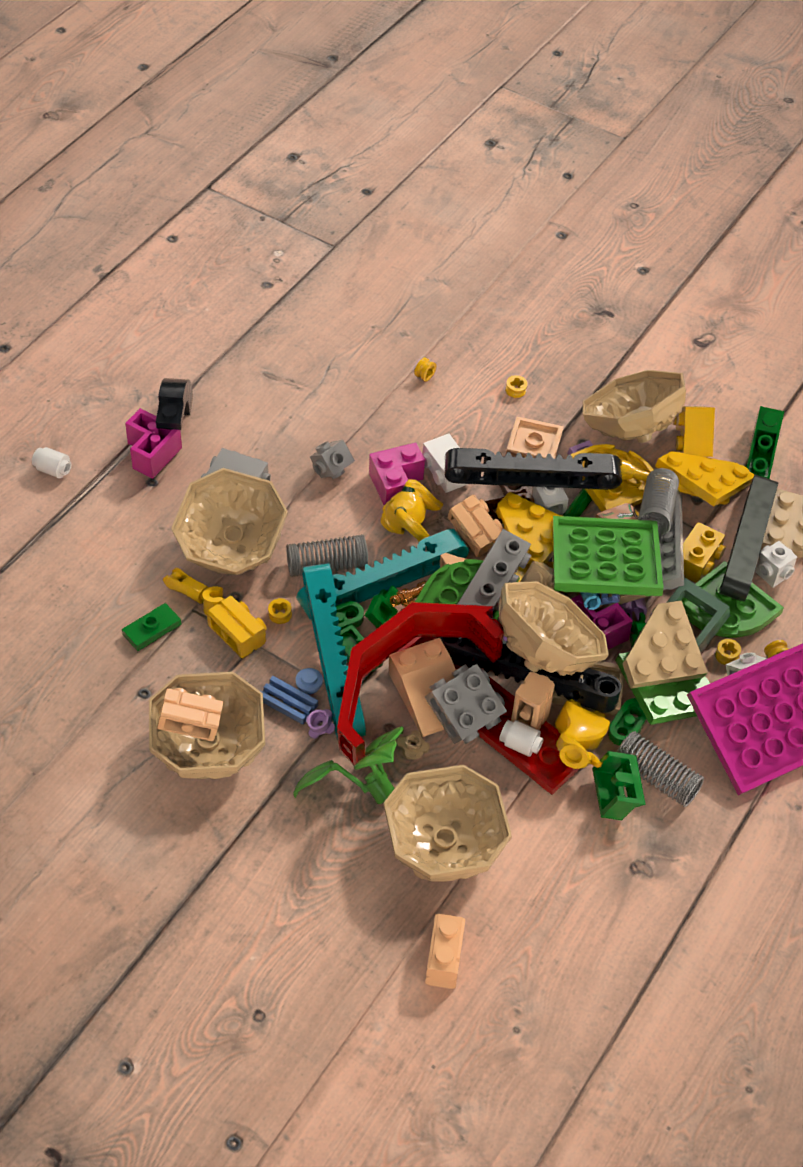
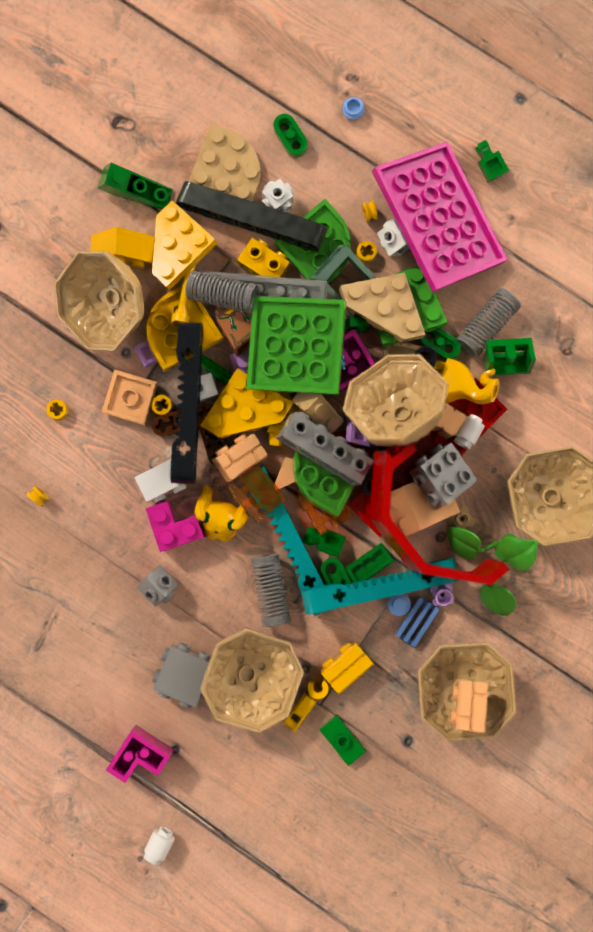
camera: 80 degrees left, 35 degrees up
(174, 402) = (95, 740): black arch -> none
(280, 604) = (332, 629): yellow bush -> none
(439, 541) = (262, 488): none -> clear orange plate

